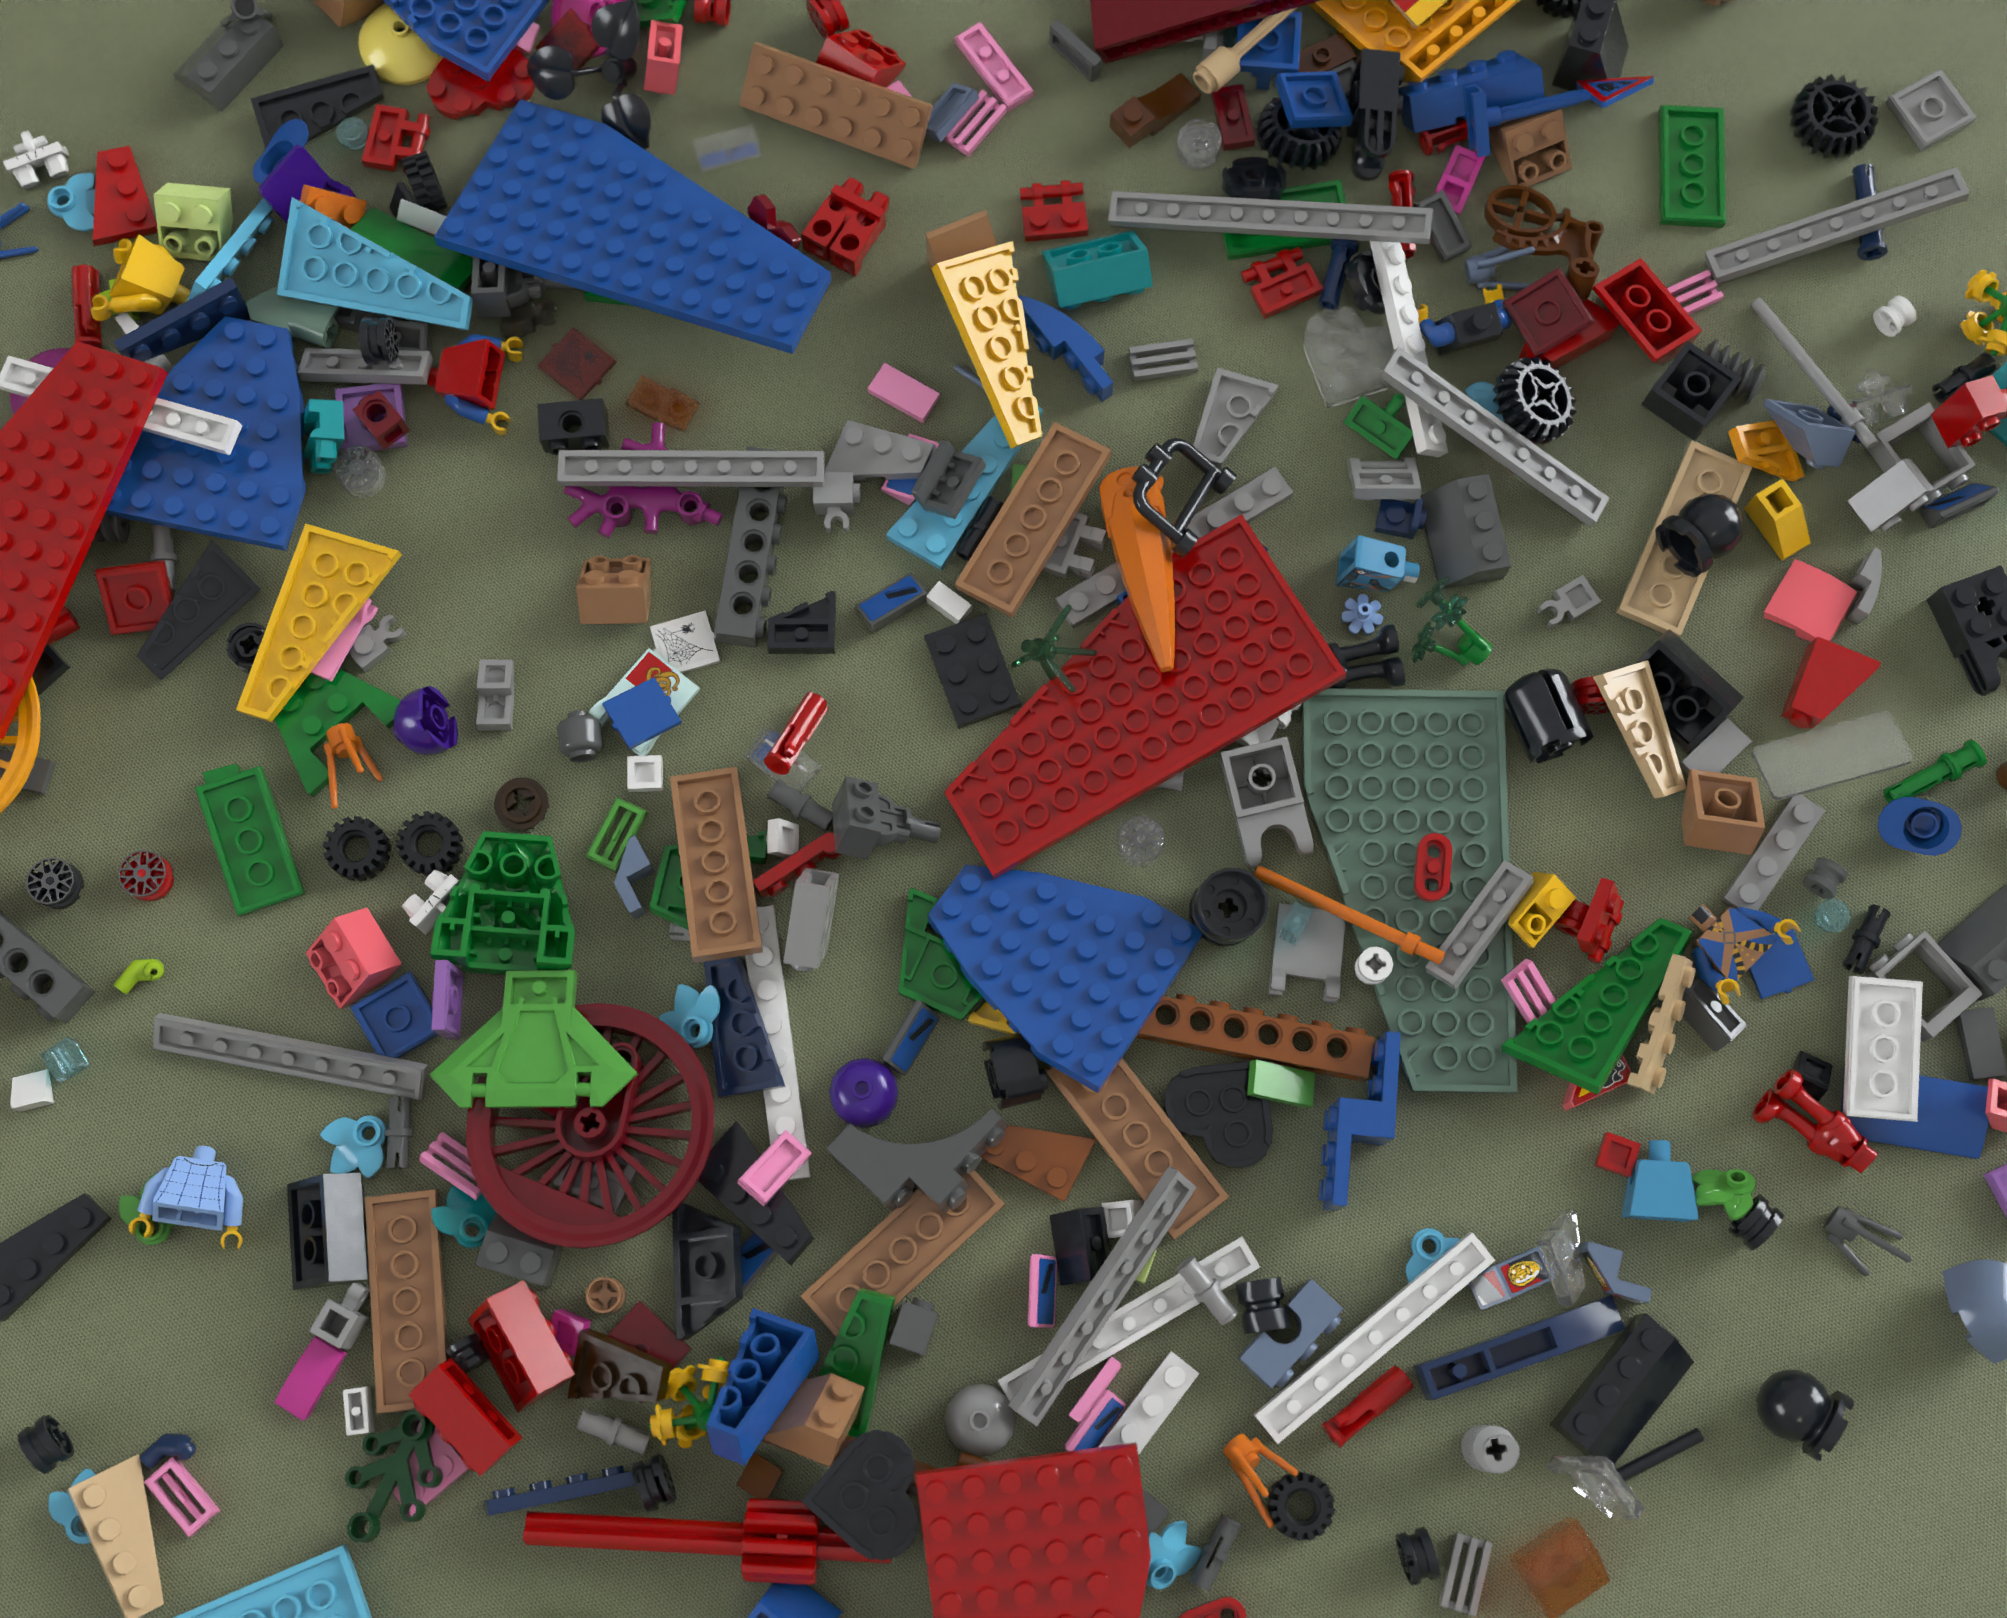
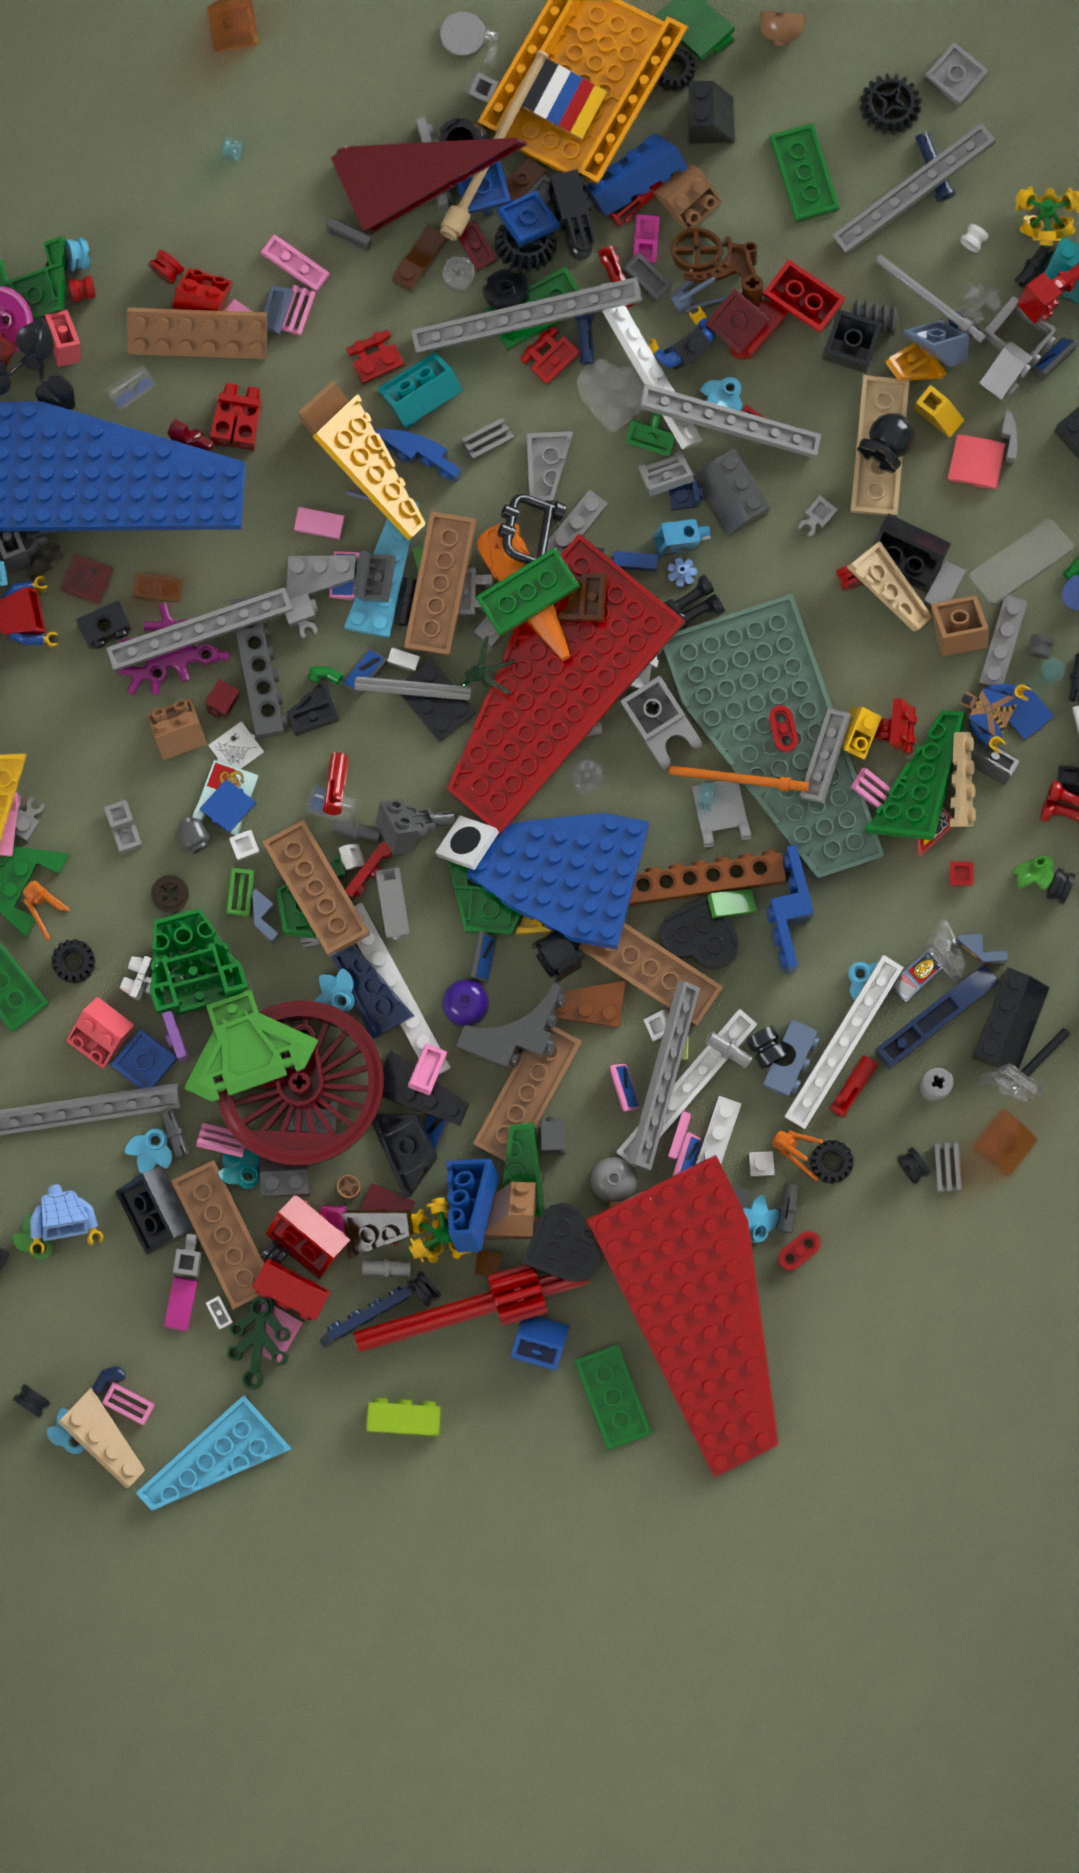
camera: 20 degrees left, 5 degrees up
(419, 826) = (110, 930): black tyre -> none
(424, 723) = (84, 863): dark purple cylinder -> none
(689, 572) = (222, 699): none -> dark red brick
(840, 585) = (326, 672): none -> green arm
(944, 873) = (467, 842): none -> white tile
(946, 641) = (412, 688): none -> light grey axle
(1079, 1243) = (638, 1049): black panel -> none
(1145, 563) = (527, 592): none -> green tile
(1198, 1472) = (761, 1164): none -> white plate
(1223, 602) = (587, 601): none -> reddish brown wing
(1244, 896) = (665, 789): black wheel -> none
(1306, 579) = (636, 561): none -> blue piece
(1365, 283) = (603, 337): black plate -> none
(1371, 972) = (764, 810): white wheel -> none
(1471, 644) = (761, 567): plant -> none
(1480, 118) = (722, 146): blue piece -> none
(1530, 381) = (762, 386): black gear -> none
(1546, 714) = (824, 600): black cylinder -> none
(1660, 1188) = (994, 885): dark azure torso -> none
(1708, 286) = (842, 257): bright pink tile -> none
(1824, 681) = (1001, 514): red slope -> none

